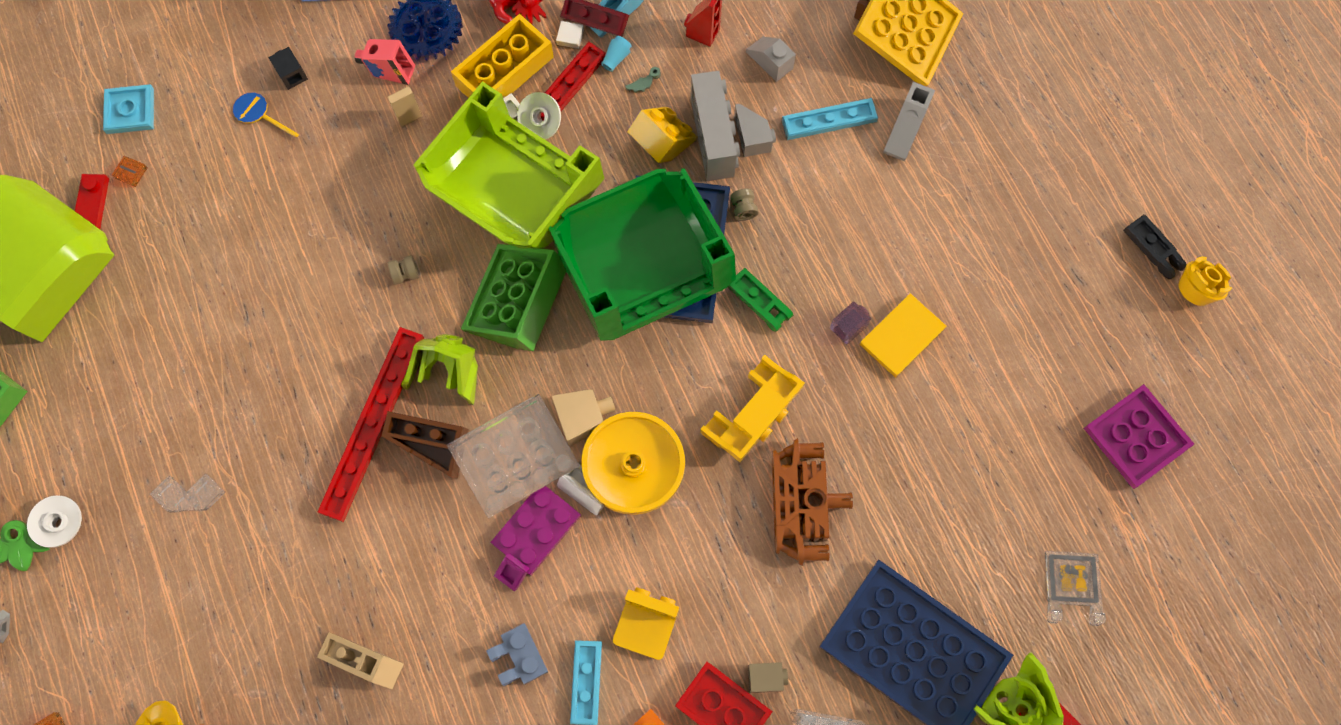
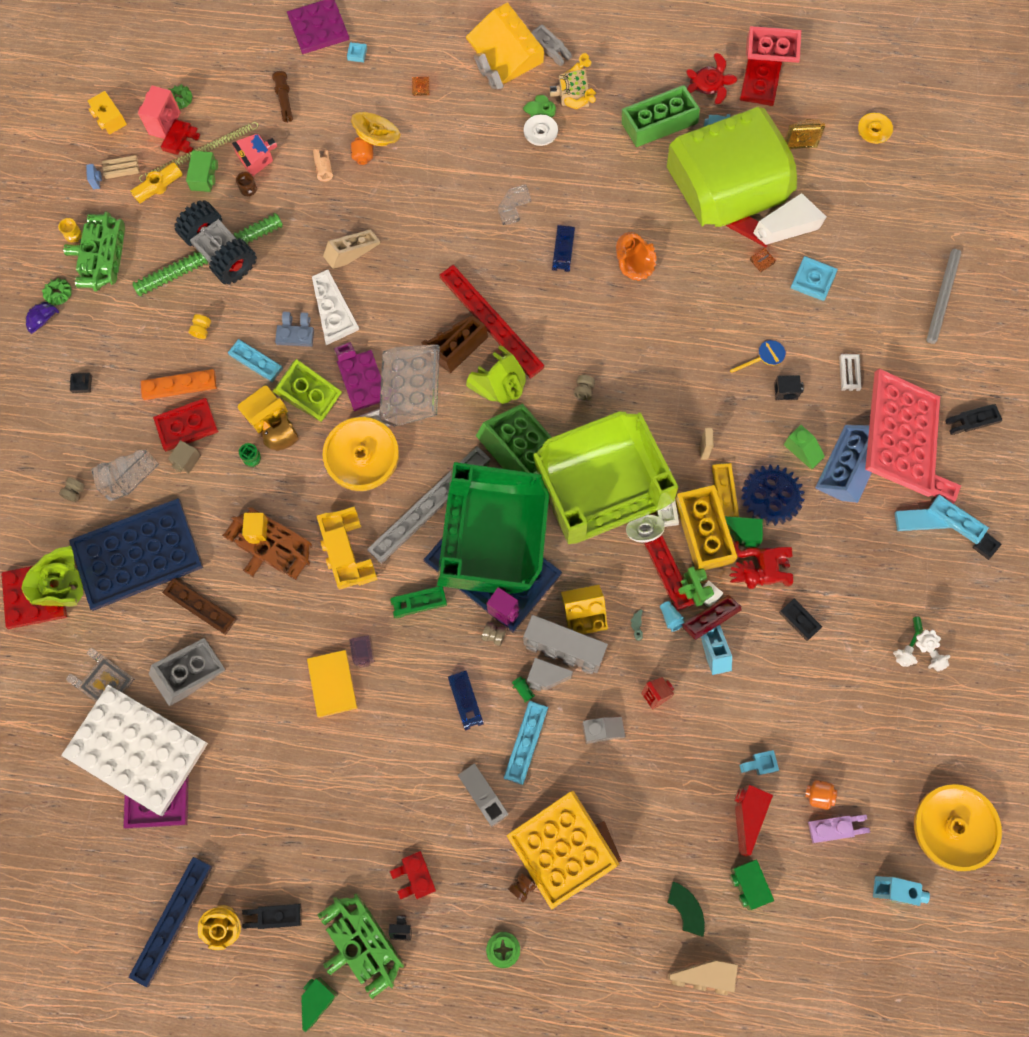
camera: 125 degrees right, 0 degrees up
(60, 161) = (790, 220): none -> white slope
(196, 301) = (635, 256): none -> orange hair
(224, 397) = (563, 248): none -> clear blue plate
(235, 25) = (850, 385): none -> white tile
(350, 23) = (805, 447): none -> bright green slope
(386, 60) = (757, 448): coral torso -> none
(440, 76) = (725, 488): none -> yellow tile
(463, 624) = (333, 310): none -> white wing
(480, 25) = (746, 530): none -> green slope
(574, 43) = (693, 588): none -> bright green hips
(581, 413) = (415, 442): tan torso -> none
(590, 585) = (307, 390): none -> lime slope
(646, 354) = (420, 512): none -> light grey plate
(666, 575) = (279, 434): none -> pearl gold piece
(713, 601) = (252, 458): none -> green wheel
(717, 194) = (503, 606): none -> magenta brick
(779, 151) = (523, 689): none -> green pin
(801, 515) = (255, 527): none -> yellow brick
(828, 195) = (465, 699): none -> clear blue plate
(921, 535) = (199, 606): none -> reddish brown tile
(963, 46) = (521, 888): none -> reddish brown wheel
(1000, 493) = (185, 671): none -> light grey slope
(1017, 144) = (418, 876): none -> red plate
(1026, 26) = (496, 957): none -> bright green gear
(1077, 125) = (400, 930): none -> black tile
(1116, 489) = (134, 750): none -> white plate
(1120, 168) = (372, 937): none -> bright green piece
(1190, 159) = (315, 1001): none -> green slope
(1233, 337) = (170, 922): none -> dark blue plate

